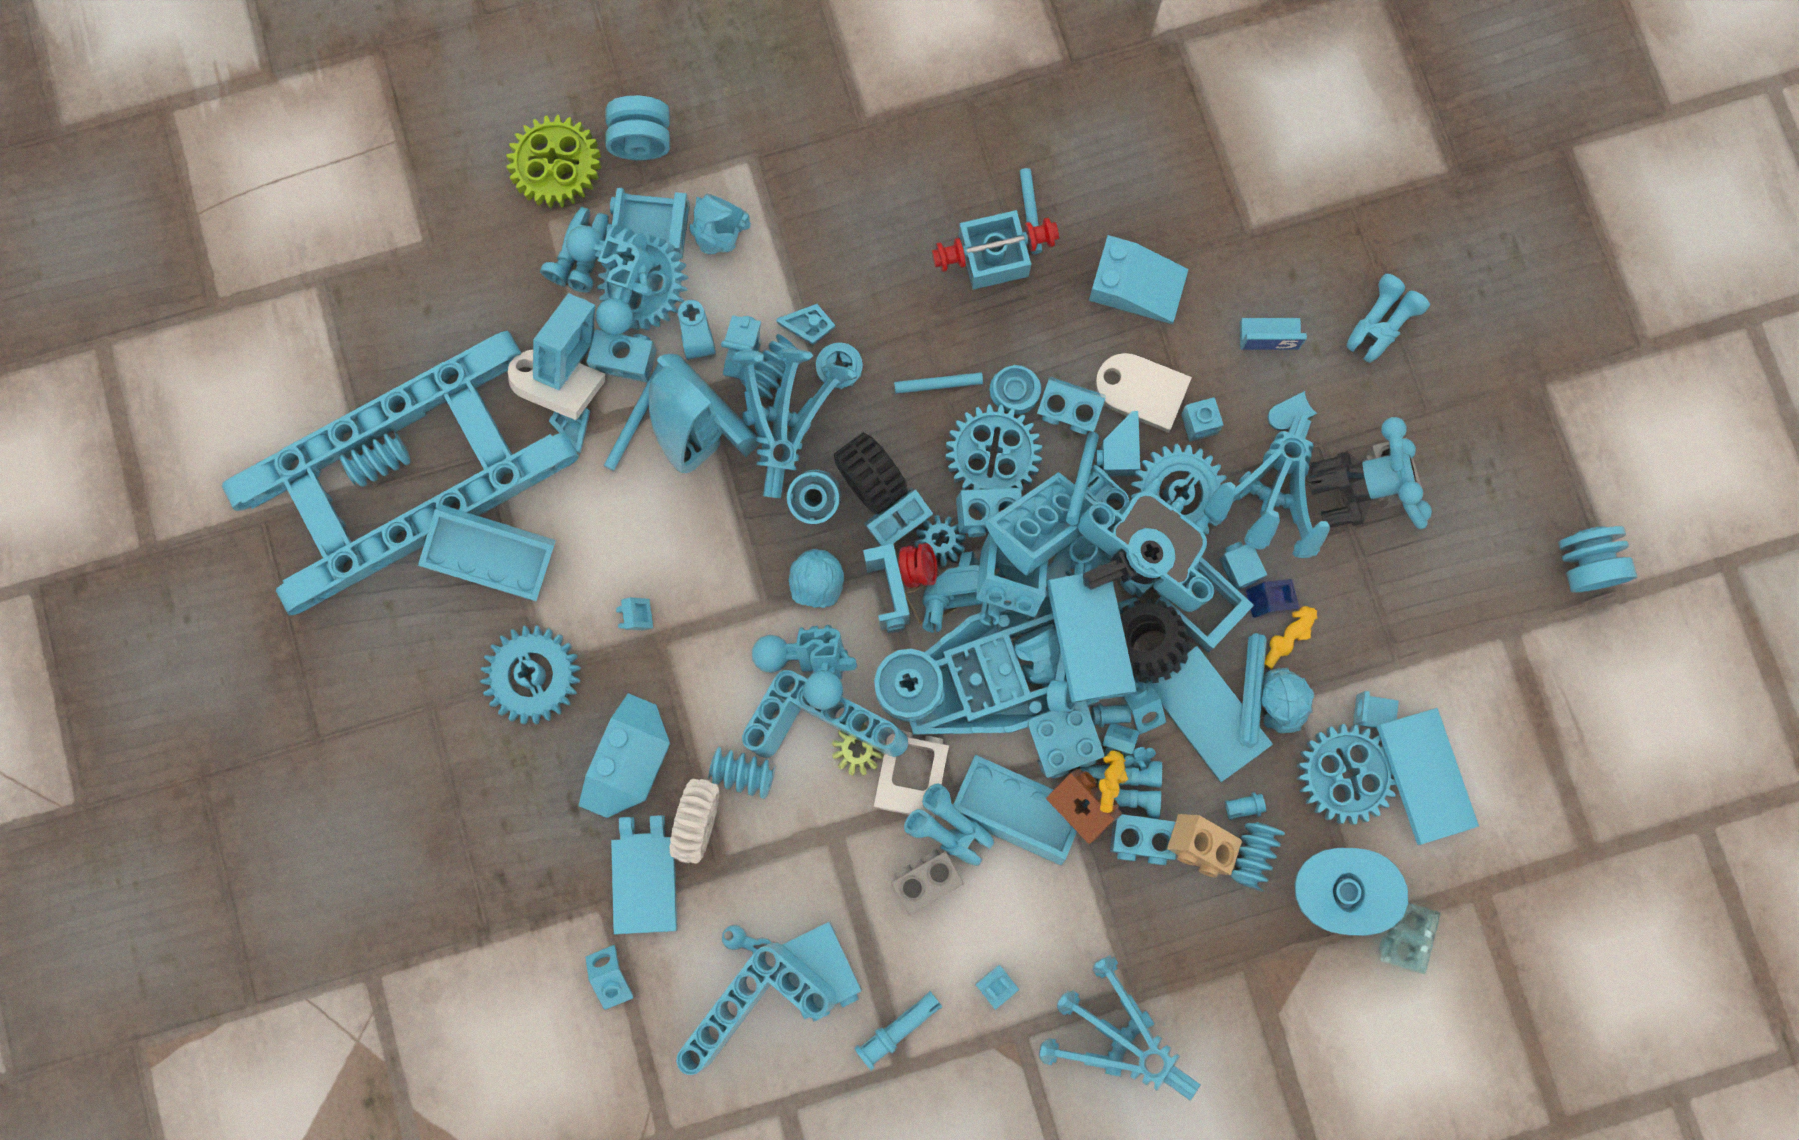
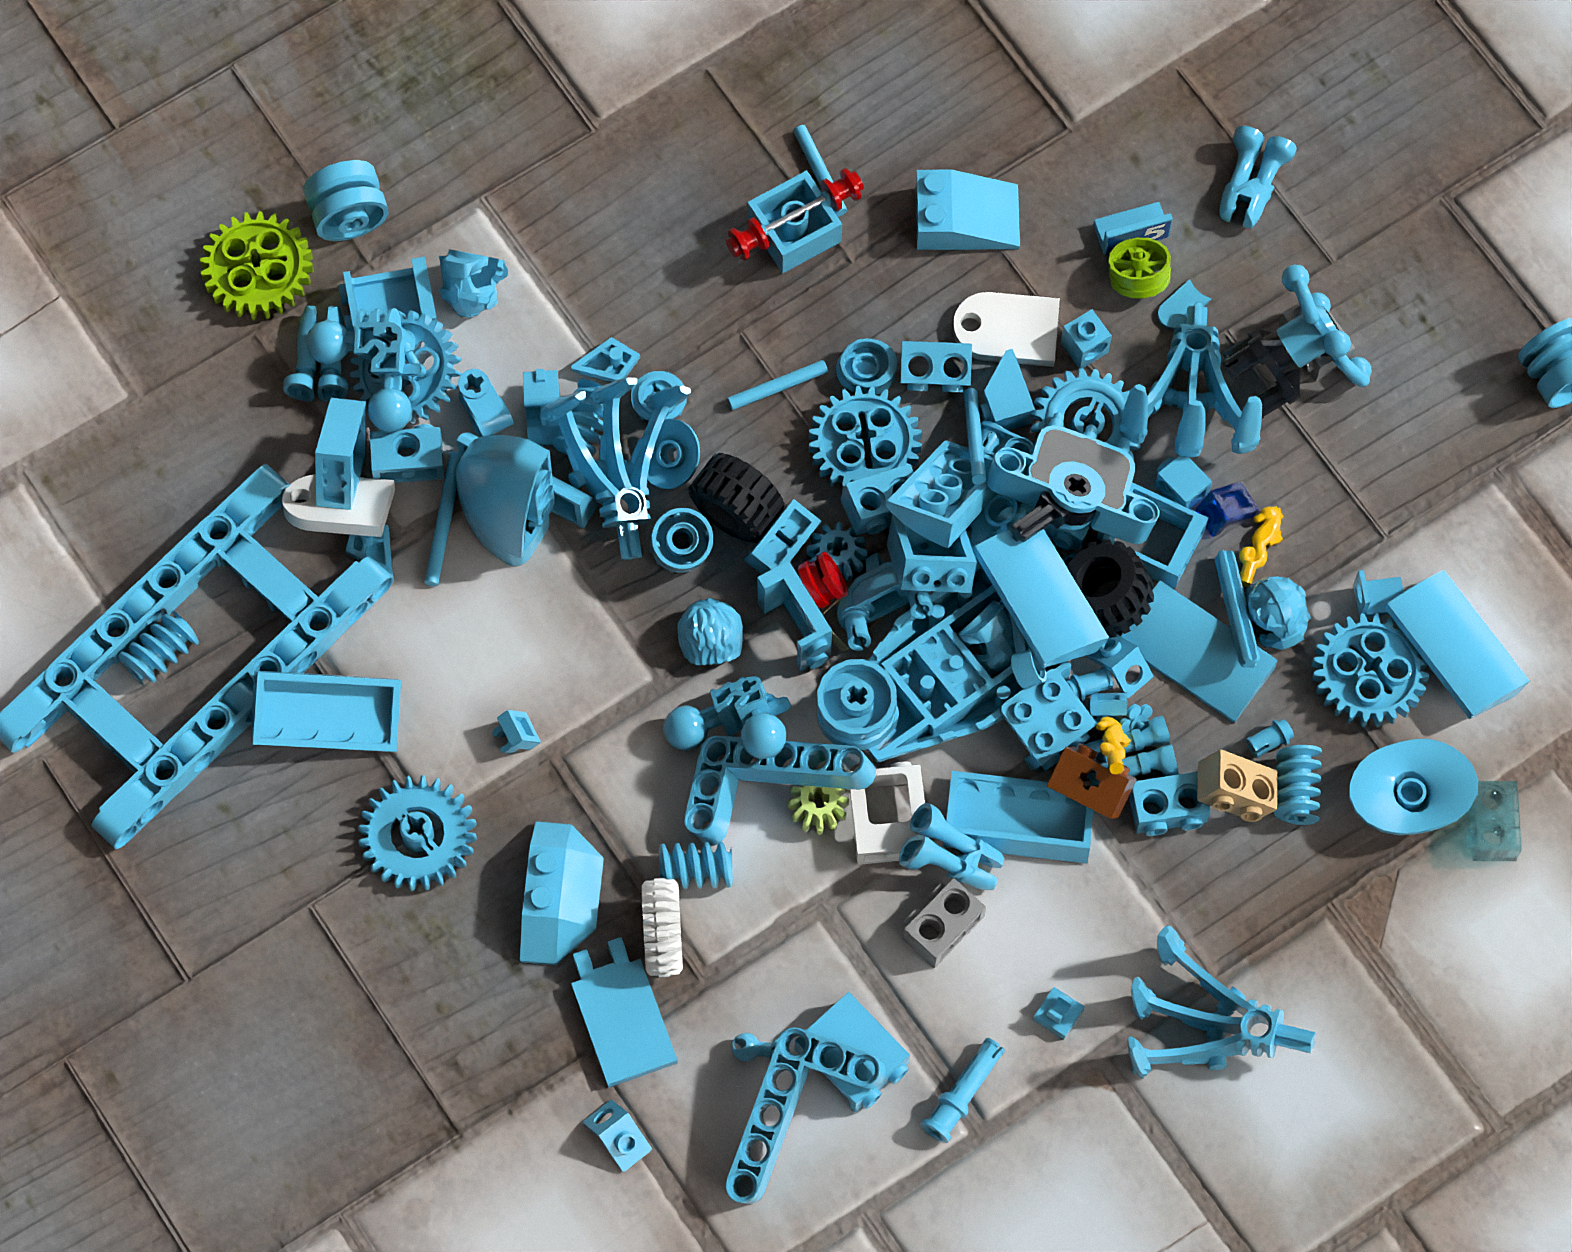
camera: 20 degrees left, 10 degrees down
(825, 427) = (663, 469): none -> medium azure dish
(1266, 384) = (1139, 274): none -> lime wheel

